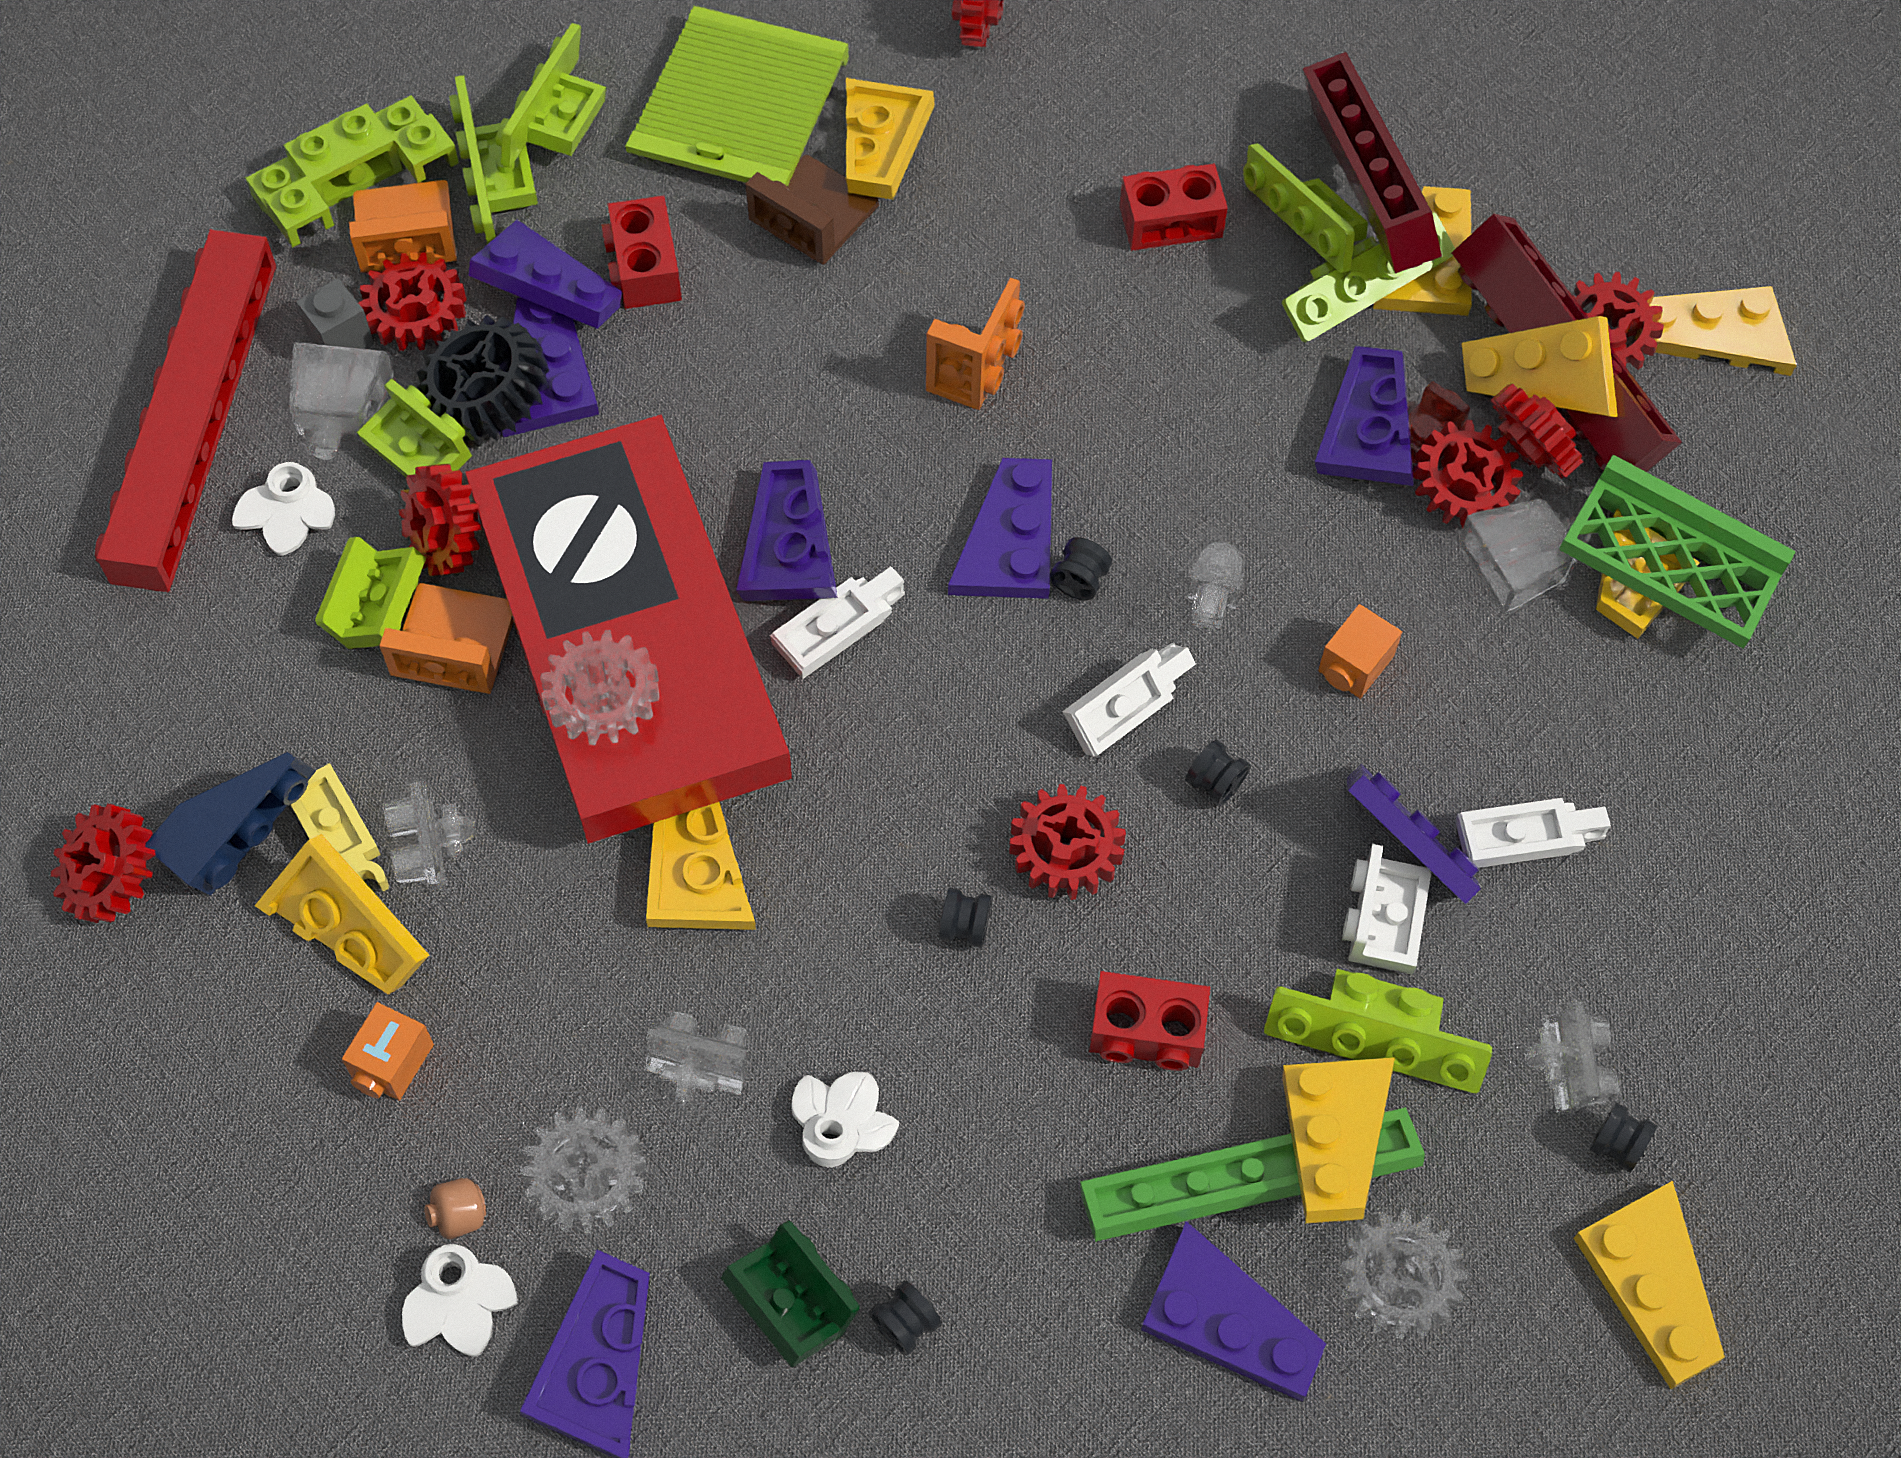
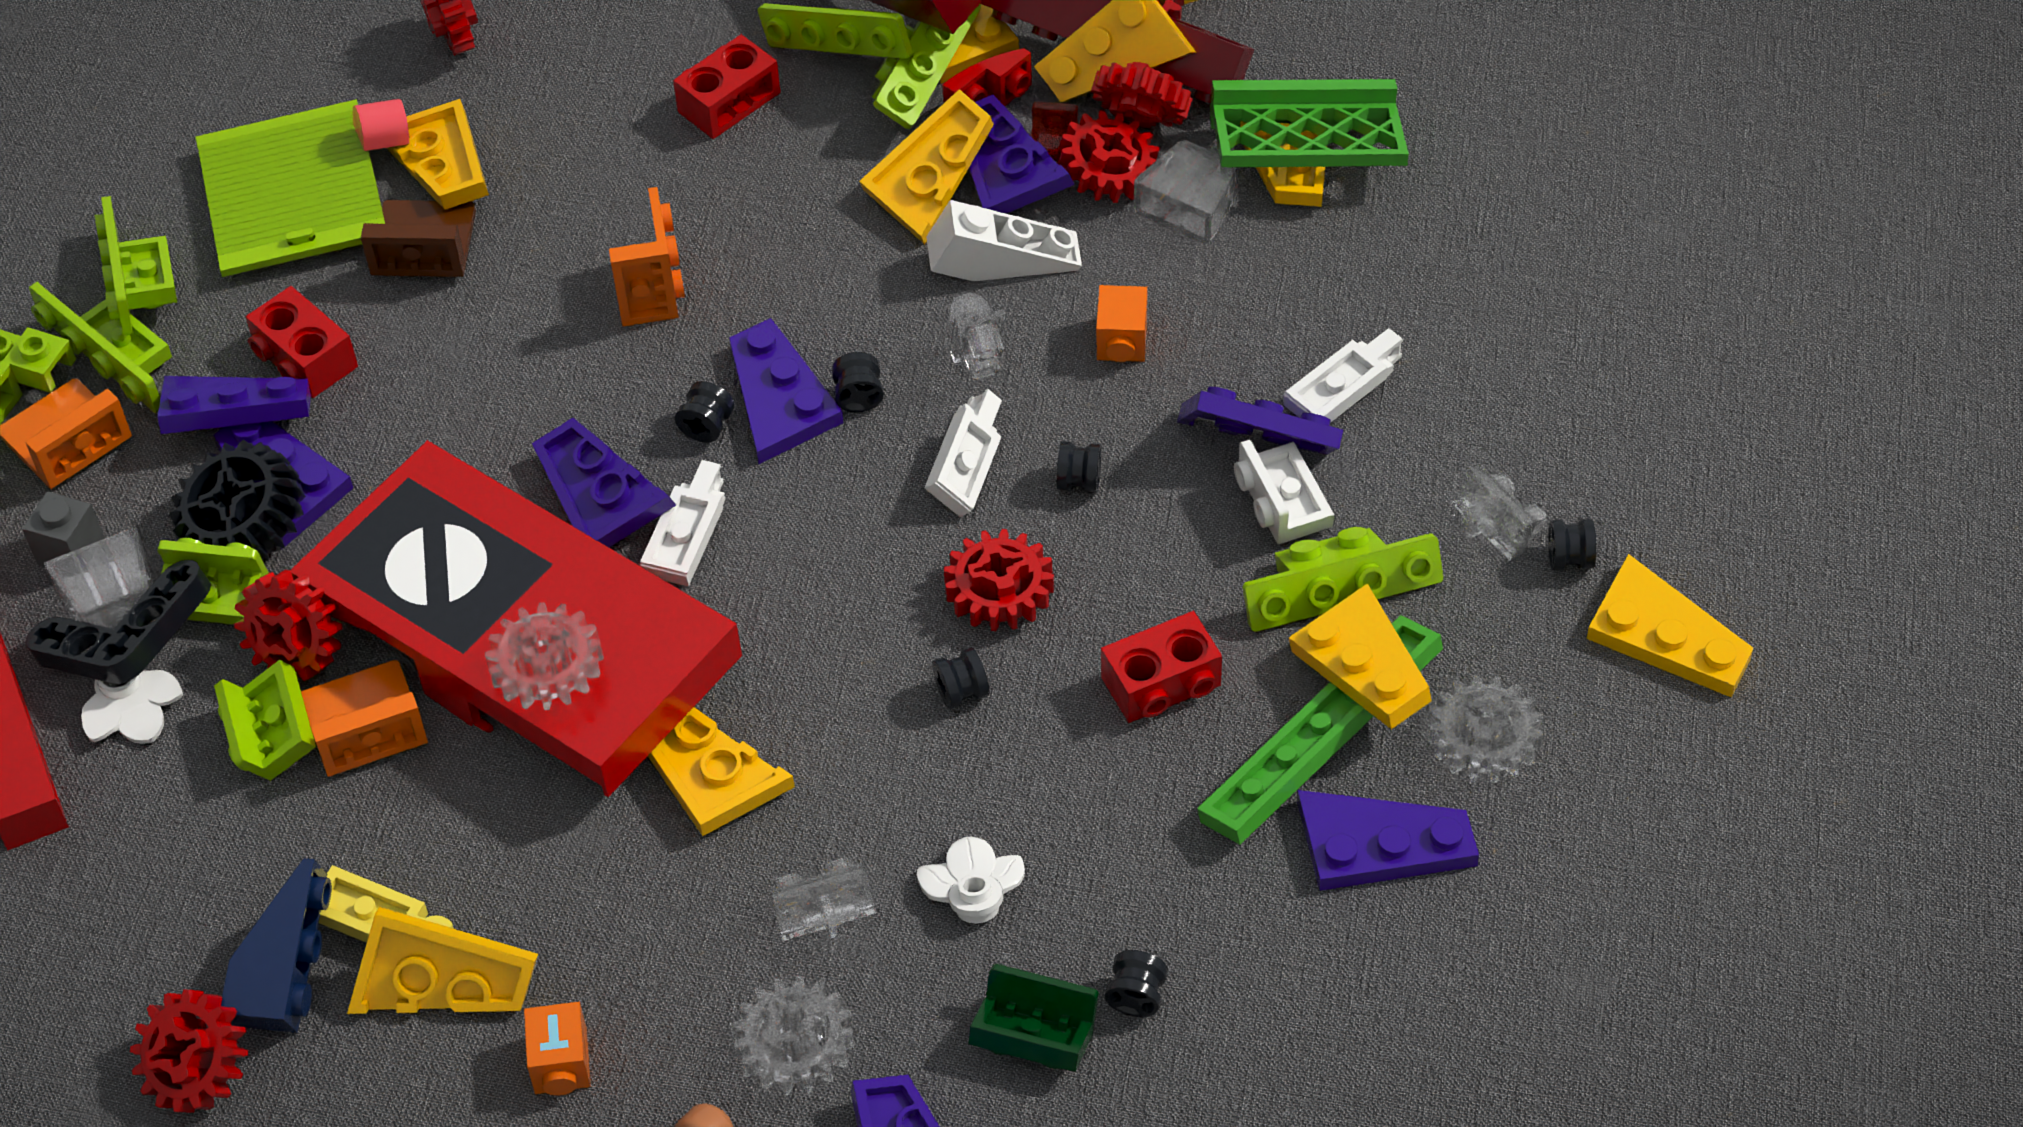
camera: 30 degrees left, 10 degrees down
(310, 460) = (127, 649): none -> black beam
(413, 301) = (123, 481): red gear -> none
(418, 816) = (468, 865): clear hips -> none
(844, 81) = (381, 124): none -> coral brick
(929, 519) = (704, 412): none -> black wheel
(1296, 388) = (929, 164): none -> yellow wing
(1304, 506) = (995, 245): none -> white slope
(1421, 335) = (1001, 75): none -> red slope

